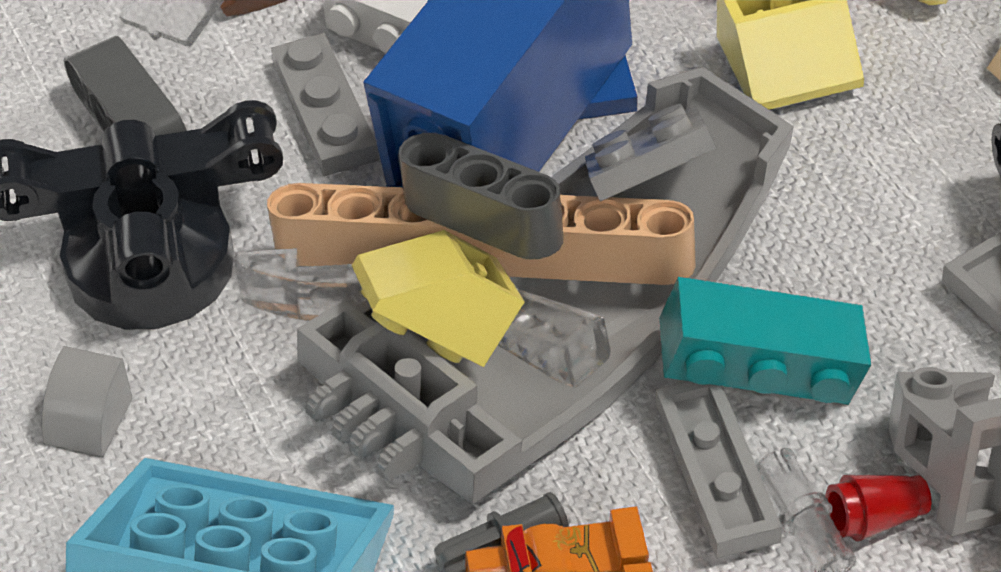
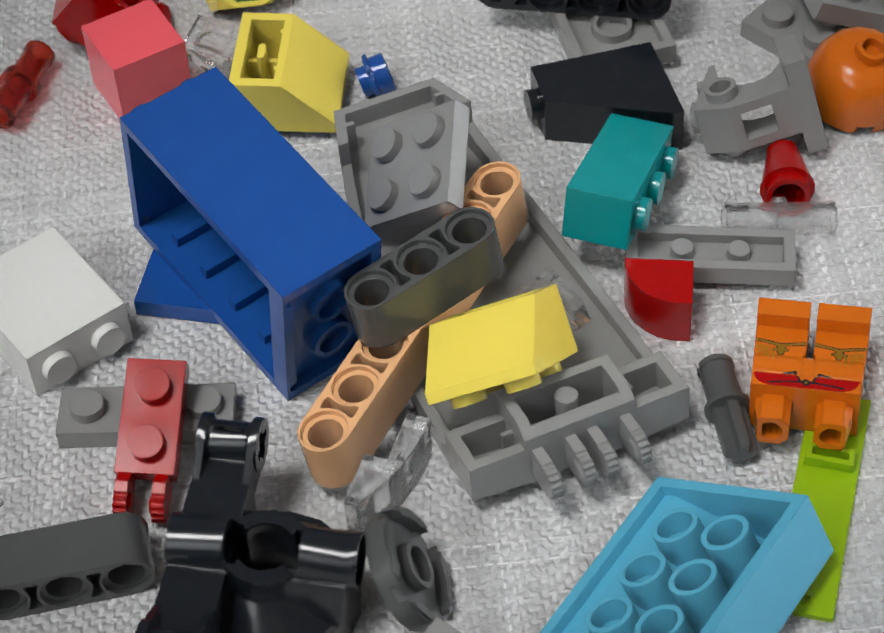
camera: 70 degrees left, 0 degrees up
(173, 322) = (406, 572): none -> dark grey tile
(295, 94) = (150, 433): none -> hinge
(629, 436) = (660, 296): none -> red brick
(844, 112) = (375, 76): none -> blue plate
(914, 304) = (580, 93): none -> black slope

